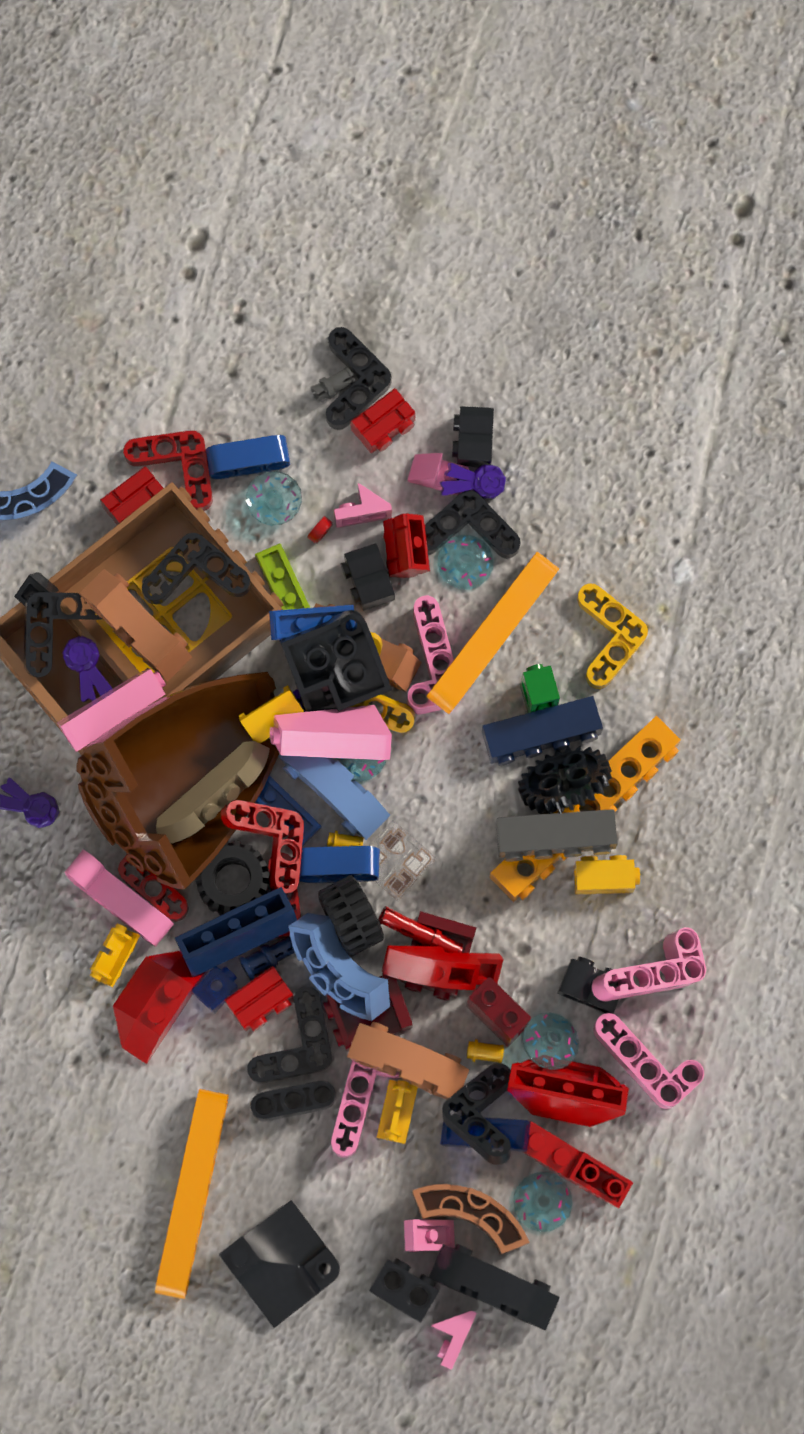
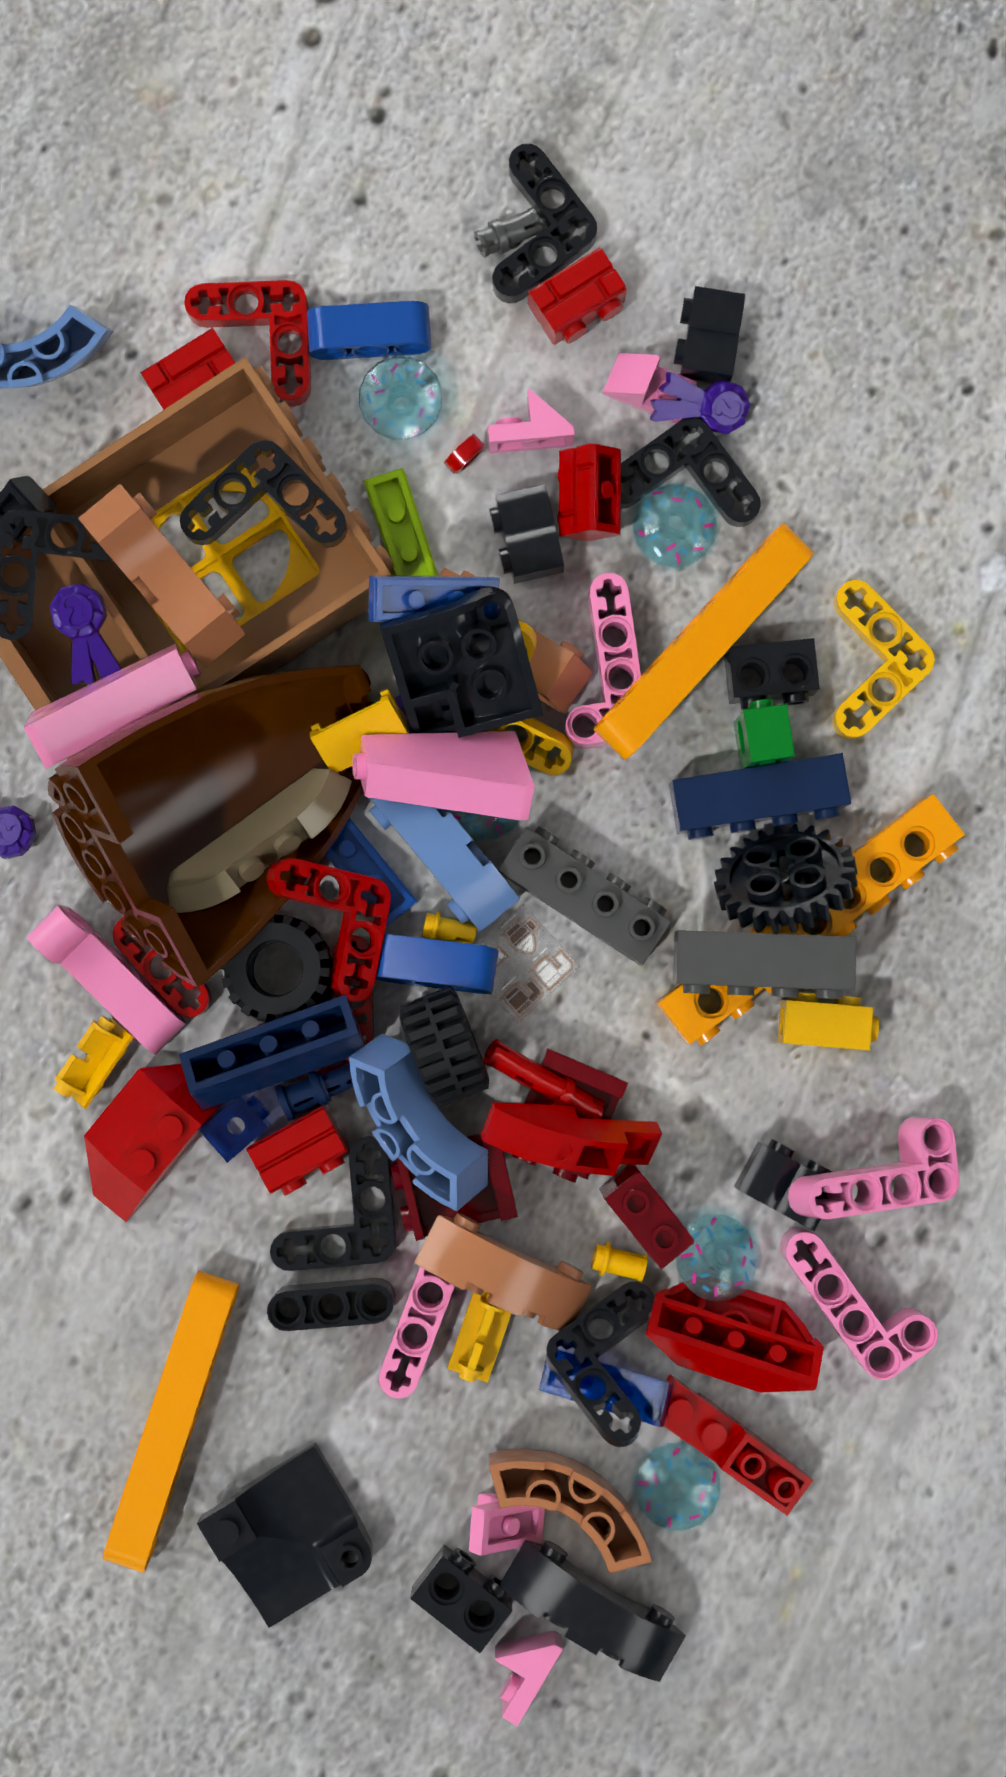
camera: 10 degrees right, 10 degrees up
(433, 809) = (584, 896): none -> dark grey brick
(537, 642) = (769, 662): none -> black brick

